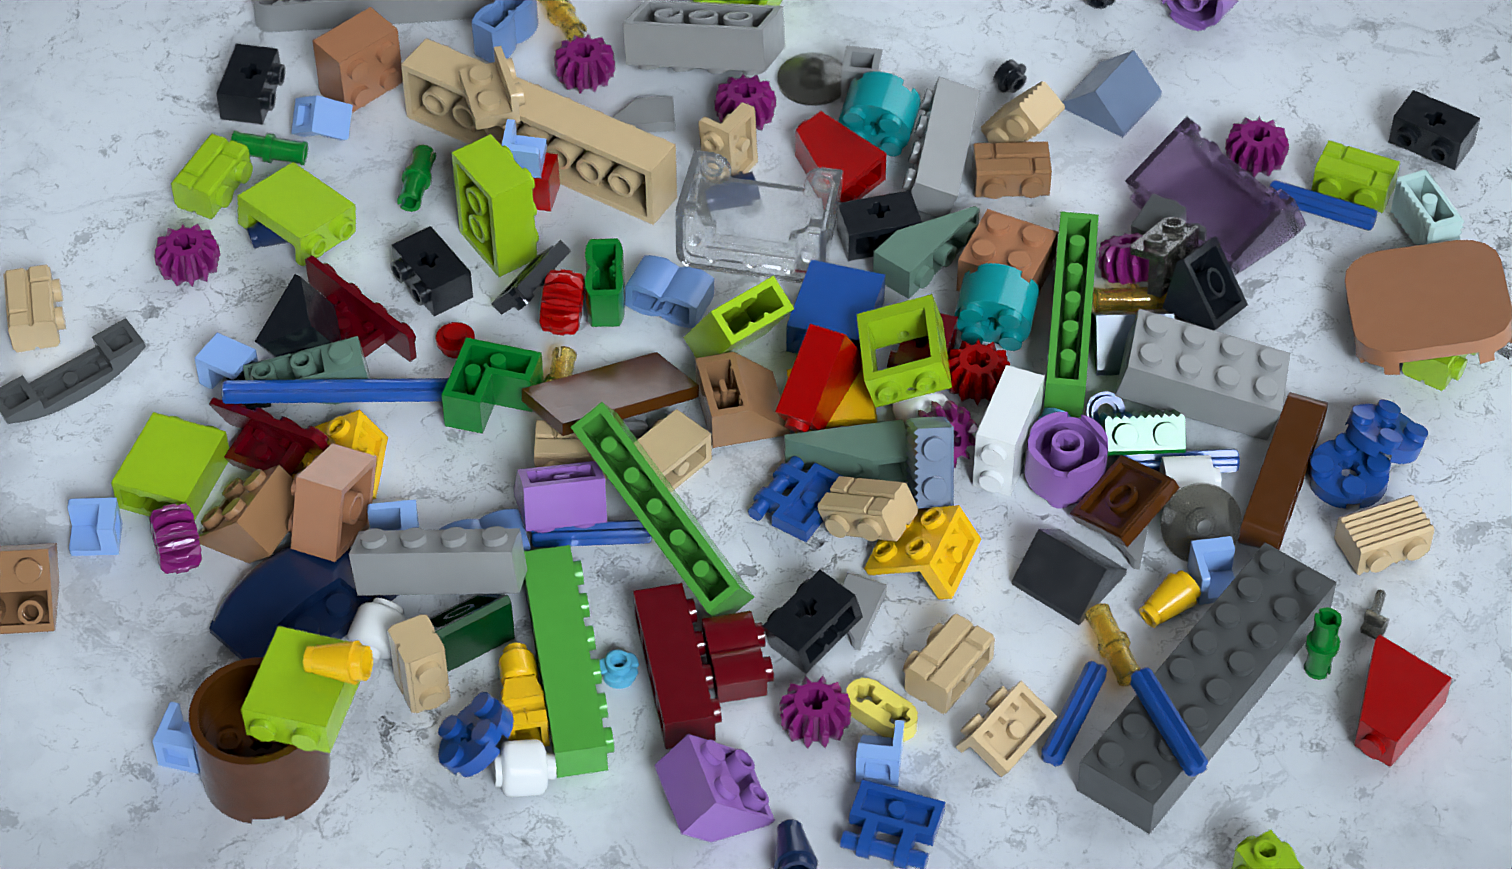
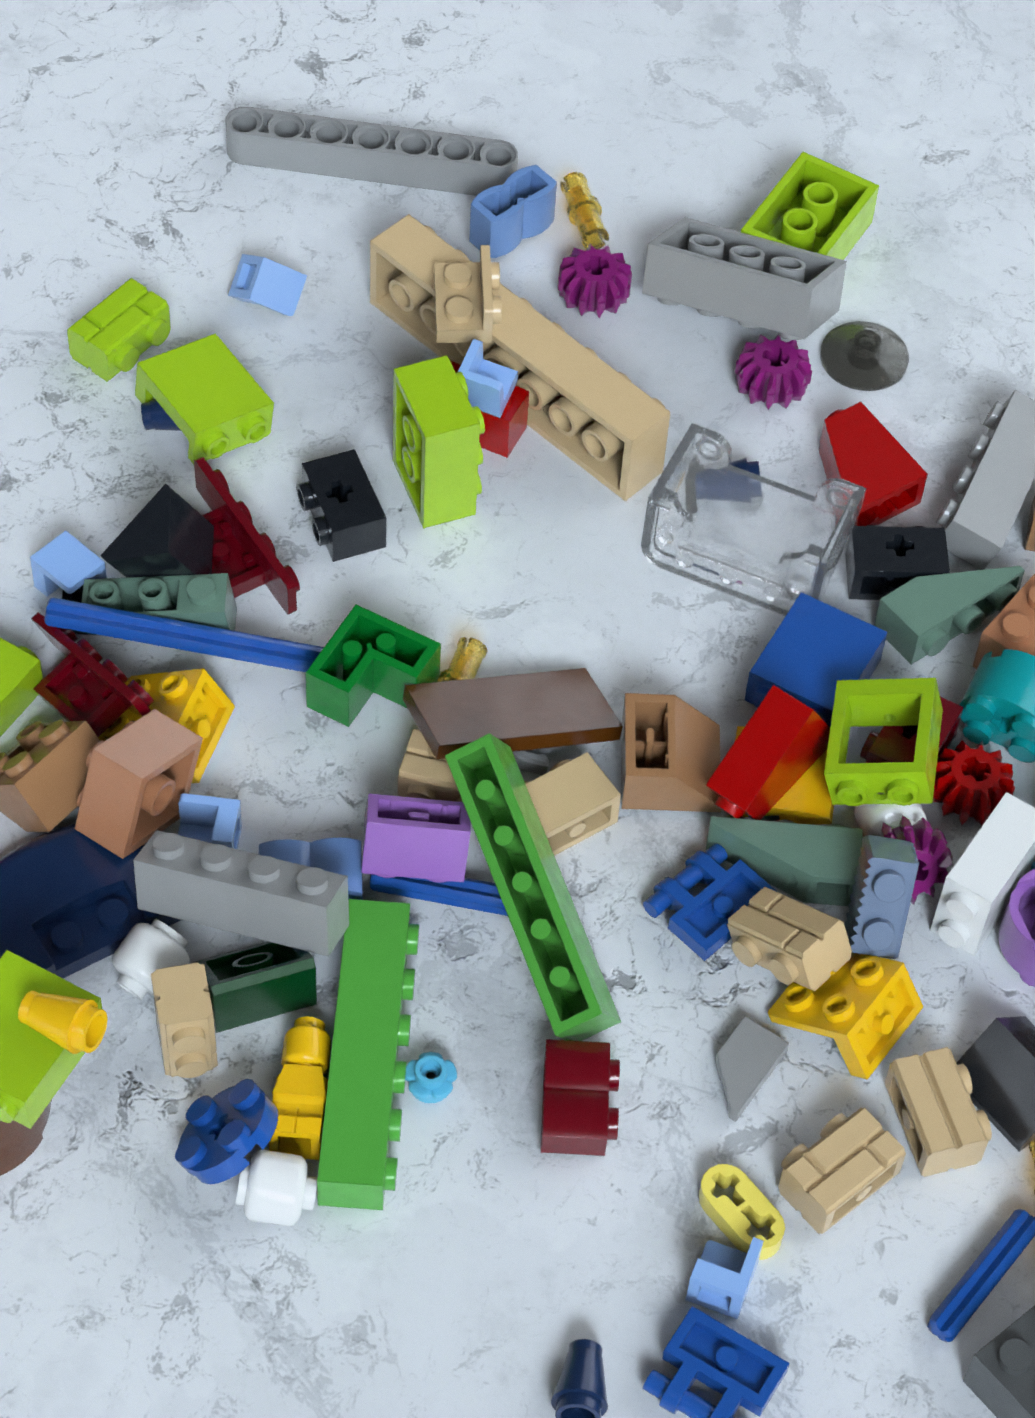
camera: 10 degrees right, 5 degrees up
(187, 254) = (62, 422): magenta gear -> none
(250, 84) = (196, 224): black brick -> none
(273, 148) = (199, 309): green pin -> none
(358, 59) = (326, 222): nougat brick -> none
(416, 178) = (358, 383): green pin -> none
(452, 337) = (346, 592): red plate -> none
(521, 289) = (464, 536): black plate -> none
(562, 302) = (486, 580): red gear -> none
(604, 282) = (543, 566): green brick -> none
(649, 114) = (652, 361): light grey tile -> none
(669, 291) = (621, 593): medium blue brick -> none
(675, 665) = (499, 1093): dark red brick -> none
(713, 790) = (502, 1274): medium lavender slope -> none
(732, 138) = (745, 418): tan bracket -> none
(740, 320) = (691, 656): lime brick -> none
(812, 620) = (709, 1073): black brick -> none
(815, 712) = (677, 1190): magenta gear -> none
(856, 63) = (922, 366): light grey brick -> none
(881, 111) = (934, 418): teal brick -> none
(1007, 728) = (892, 1276): tan bracket -> none
(1010, 607) = (937, 1111): none -> tan brick

